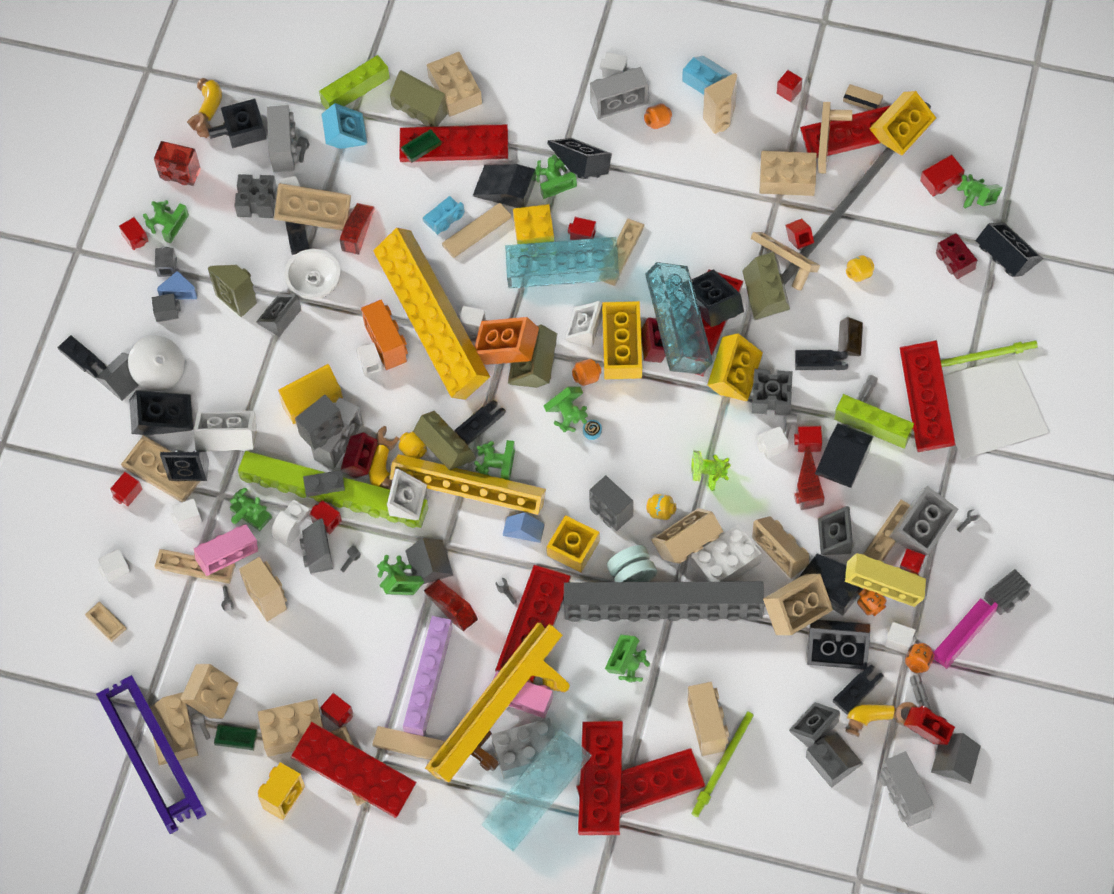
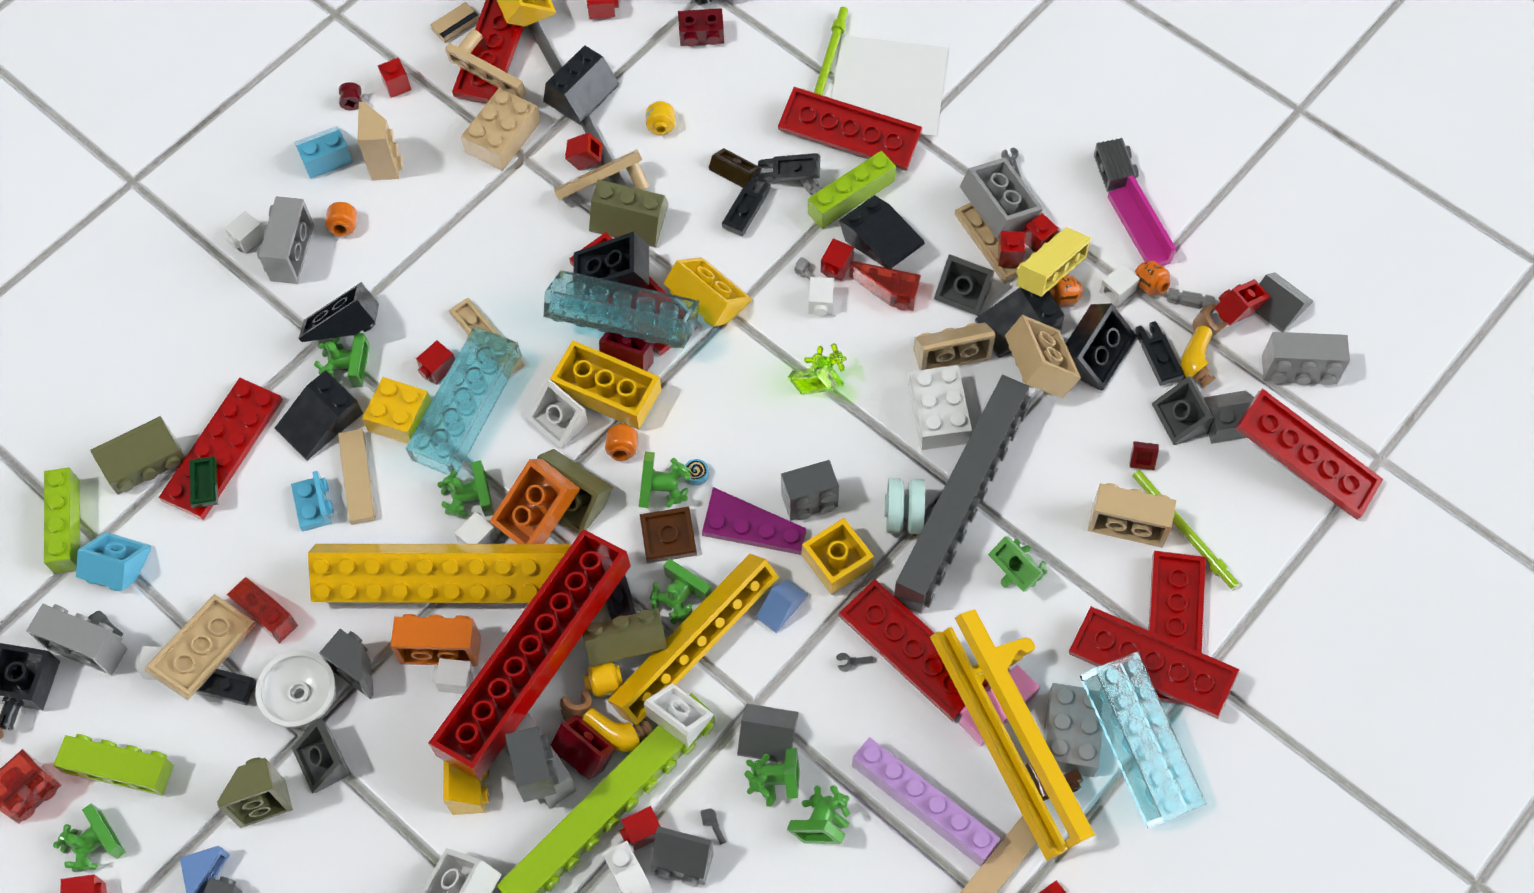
camera: 65 degrees left, 0 degrees up
(165, 261) = (152, 869): flat silver brick -> none
(215, 204) = (113, 764): none -> lime brick
(255, 196) = (135, 710): dark grey brick -> none
(323, 483) = (601, 806): dark grey plate -> none
(345, 294) = (349, 661): none -> dark grey slope
(389, 617) = (819, 826): none -> bright green piece
(396, 387) = (530, 655): none -> red brick
(451, 604) = (840, 730): clear red slope -> none
(456, 82) = (136, 402): tan brick -> none
(503, 304) = (467, 492): none -> bright green piece
(536, 435) = (668, 534): none -> reddish brown tile
(570, 478) = (747, 524): none -> magenta wing
(661, 506) = (838, 443): yellow head -> none
(687, 536) = (895, 429): tan brick -> none
(758, 68) = (350, 96): none -> dark red wheel
(764, 711) = (1143, 455): none -> dark red tile
(772, 392) = (762, 266): dark grey brick -> none
(824, 821) = (1309, 454): none -> red plate
(852, 203) = (580, 85): none -> black slope
(866, 372) = (790, 168): none -> black hinge
(882, 547) = (1011, 248): none -> red brick

